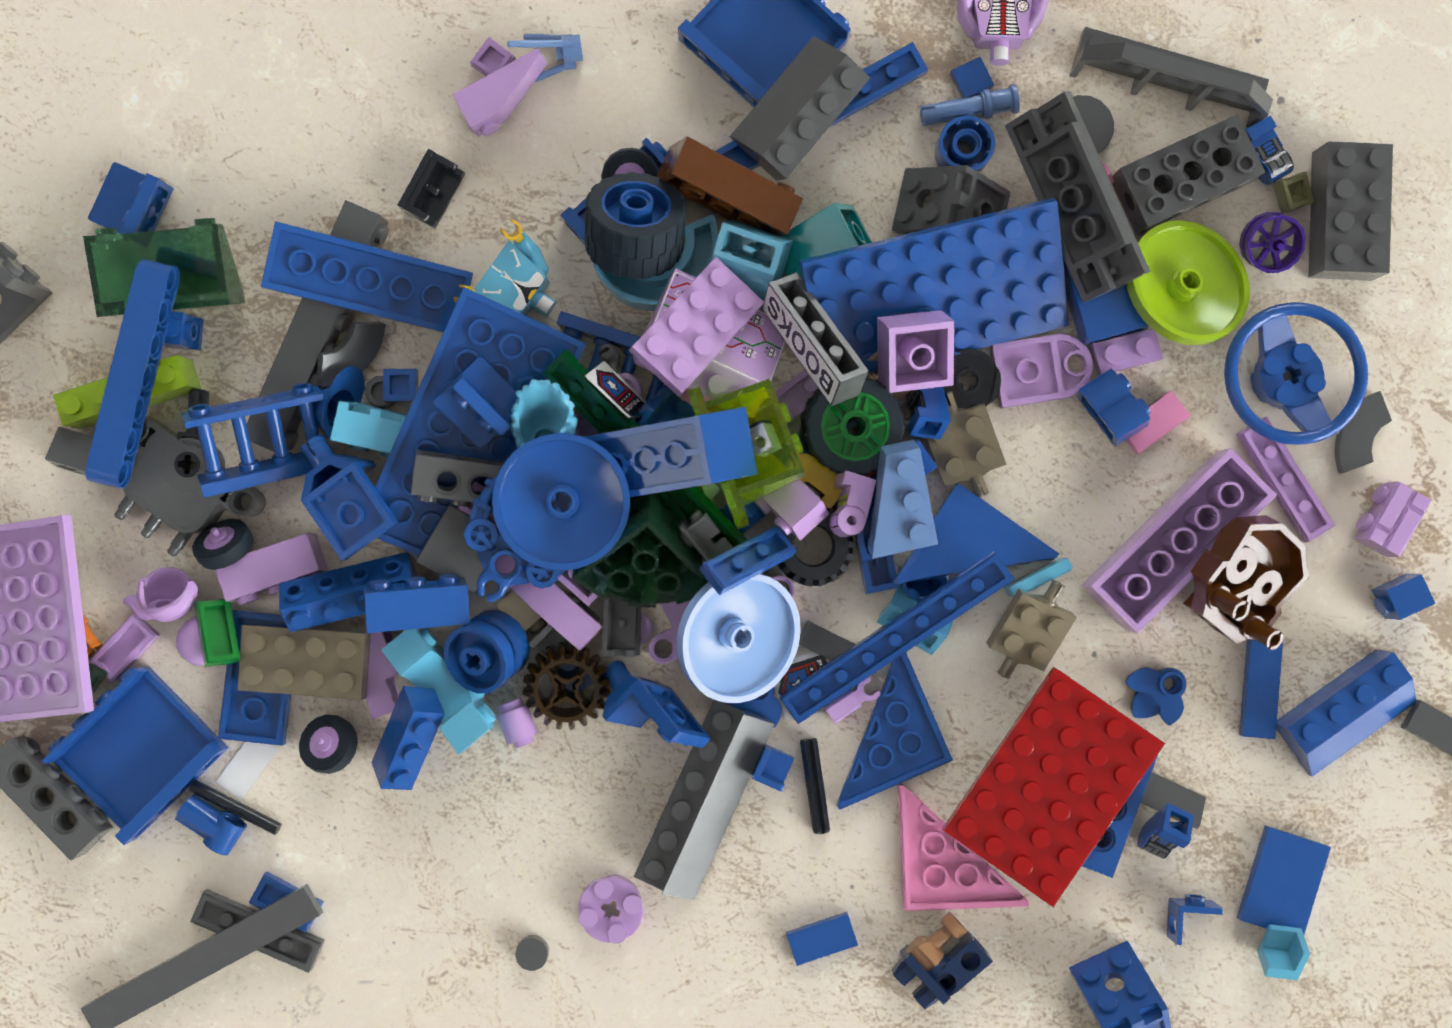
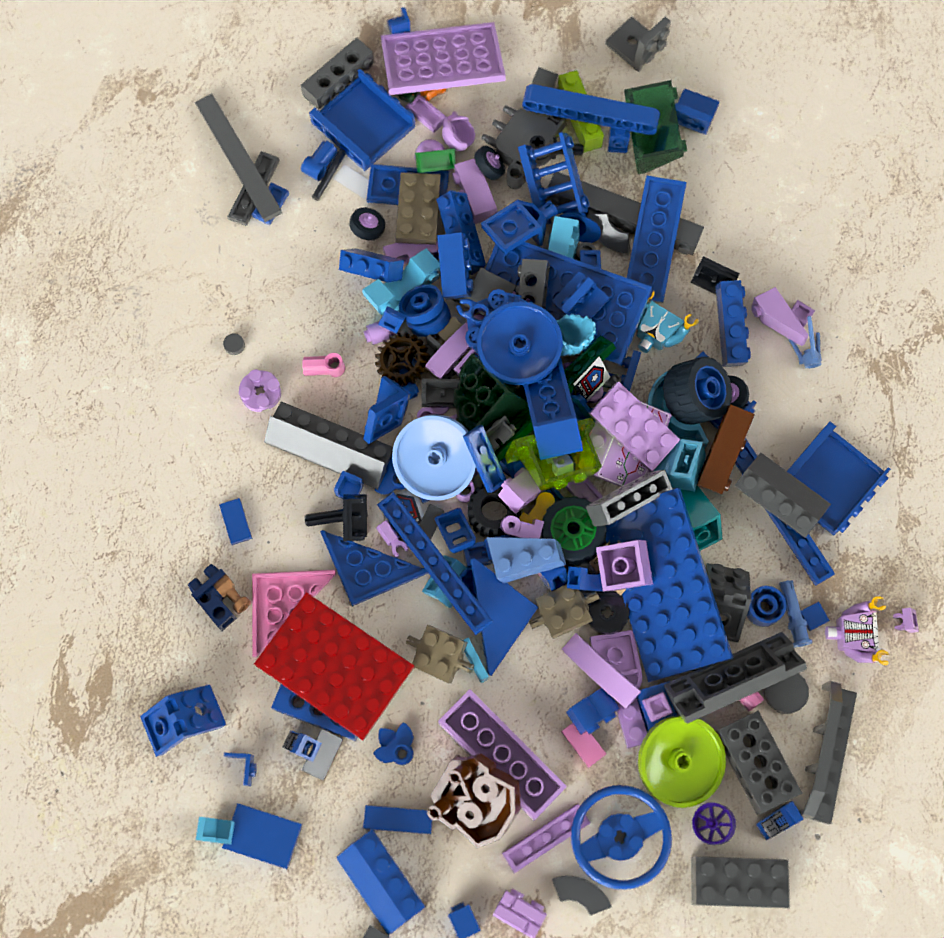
camera: 90 degrees right, 15 degrees down
(507, 704) = (392, 319): none -> blue tile
(514, 165) = (732, 323): none -> blue brick
(572, 812) = (321, 365): none -> bright pink piece
(823, 758) = (354, 517): none -> black hinge
(853, 614) = (450, 518): none -> blue piece
(1057, 396) = (601, 671): none -> lavender slope
(1115, 313) = (657, 706): none -> lavender tile
(1293, 192) = (751, 842): olive tile -> none

